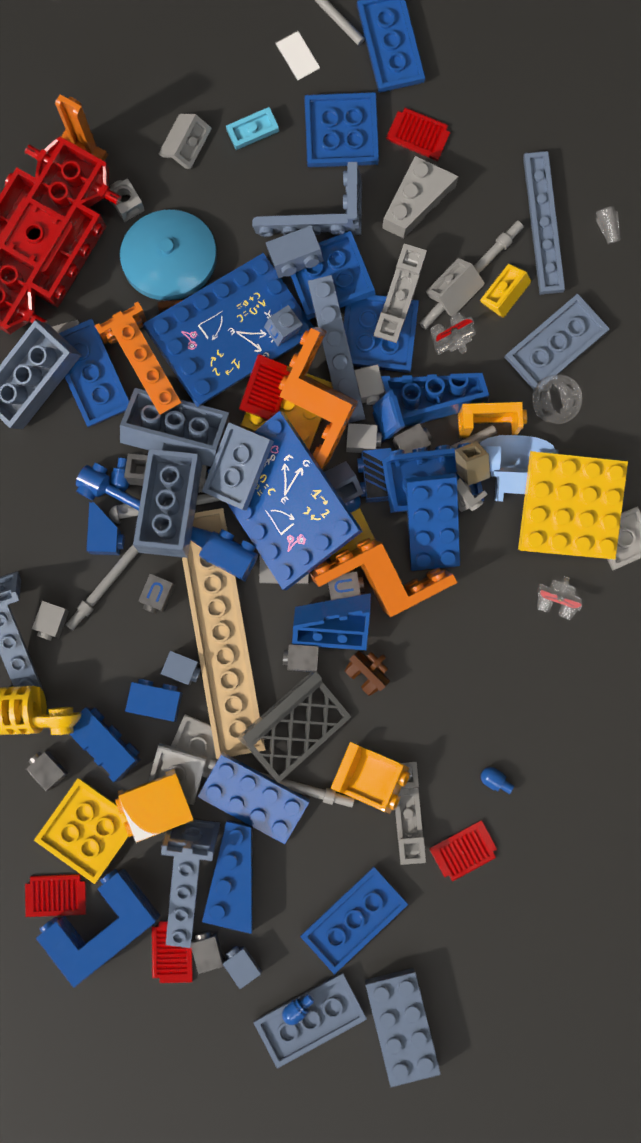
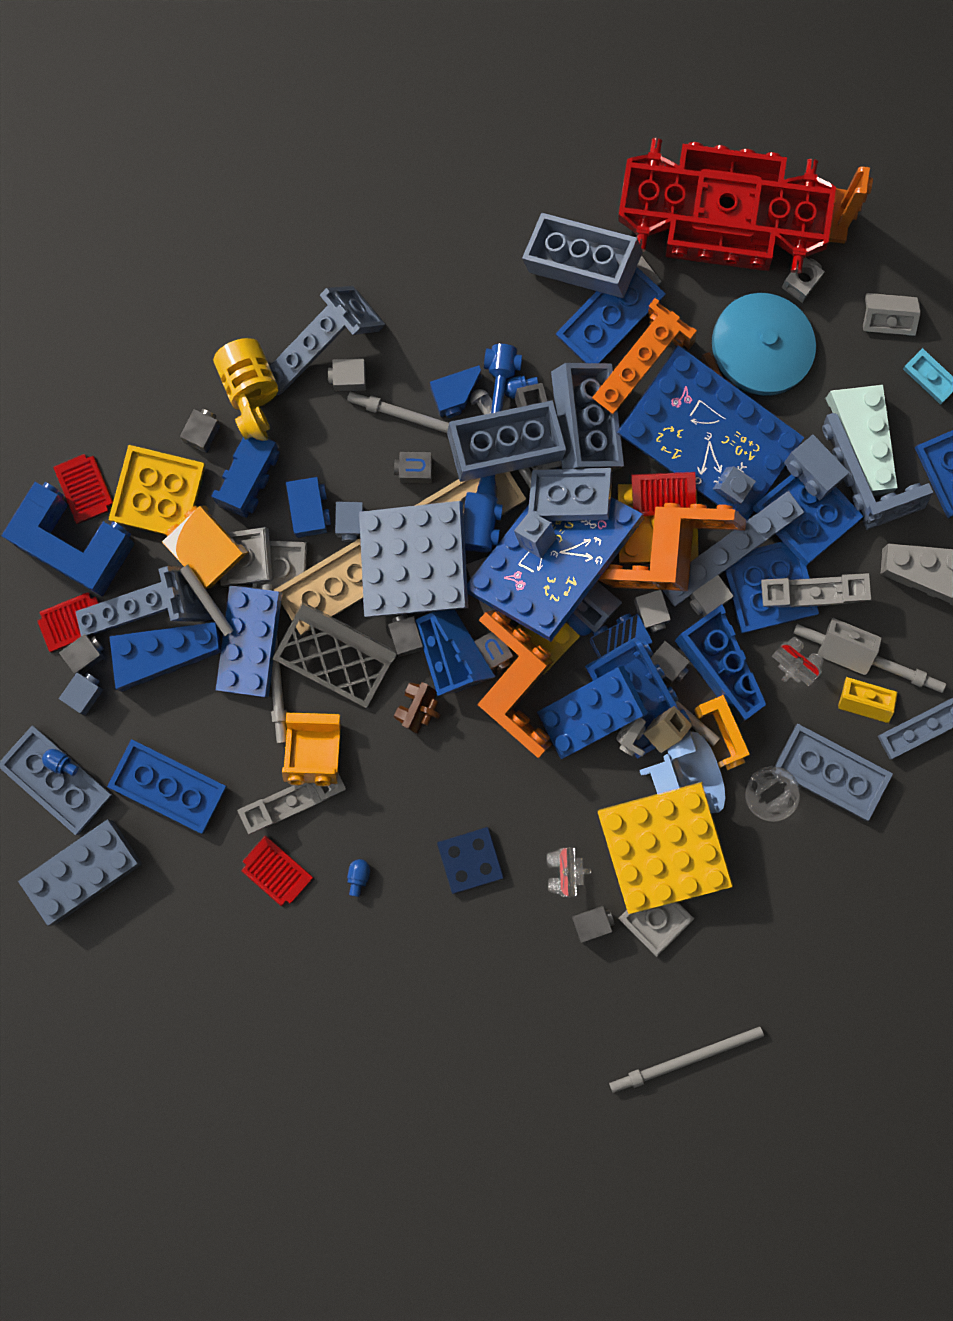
camera: 75 degrees right, 0 degrees up
(203, 822) = (206, 600): none -> light grey bar
(239, 624) = (413, 559): none -> plate
(261, 509) = (535, 534): none -> sand blue brick
(278, 196) = (867, 428): none -> light aqua wedge
(388, 416) = (683, 626): blue window -> none
(517, 677) = (470, 860): none -> dark blue tile
(611, 592) = (593, 923): none -> flat silver brick

